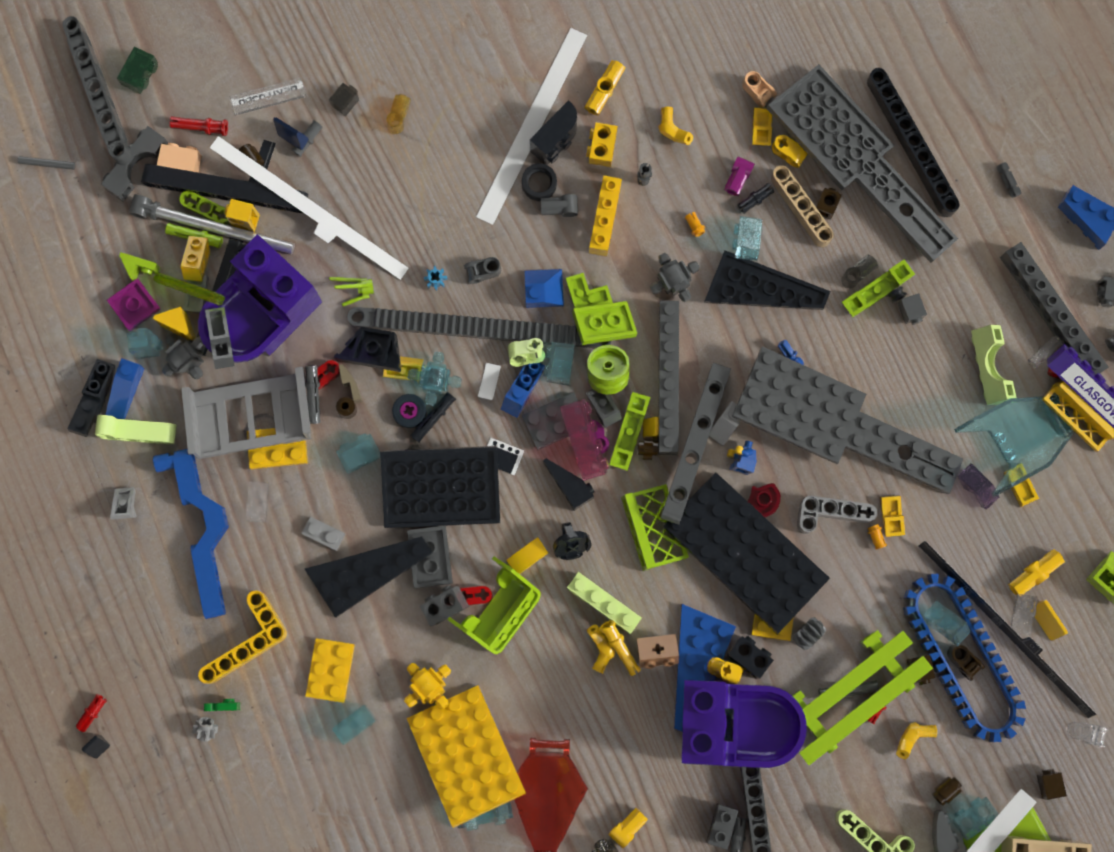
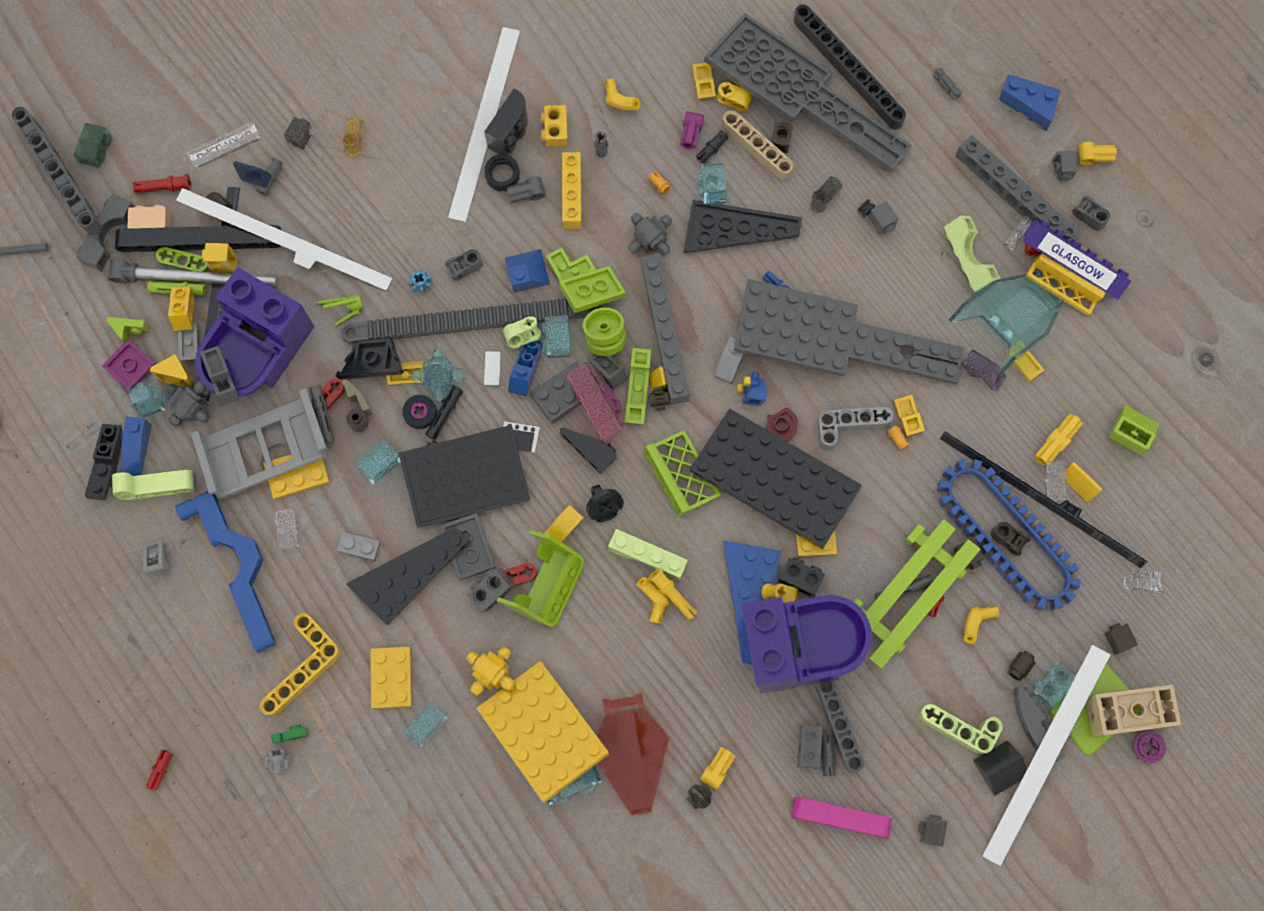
camera: 10 degrees left, 5 degrees down
(96, 746) = (170, 802): black slope -> none
(189, 288) = (180, 336): clear neon green axle -> none
(610, 78) = (544, 82): yellow piece -> none
(664, 644) = (700, 590): medium nougat brick -> none
(695, 443) = (704, 384): dark grey beam -> none
(759, 90) = (695, 48): light nougat piece -> none
(809, 633) = (853, 542): dark grey gear -> none
(878, 288) = (847, 207): lime slope -> none
(947, 623) = (984, 504): clear light blue brick -> none

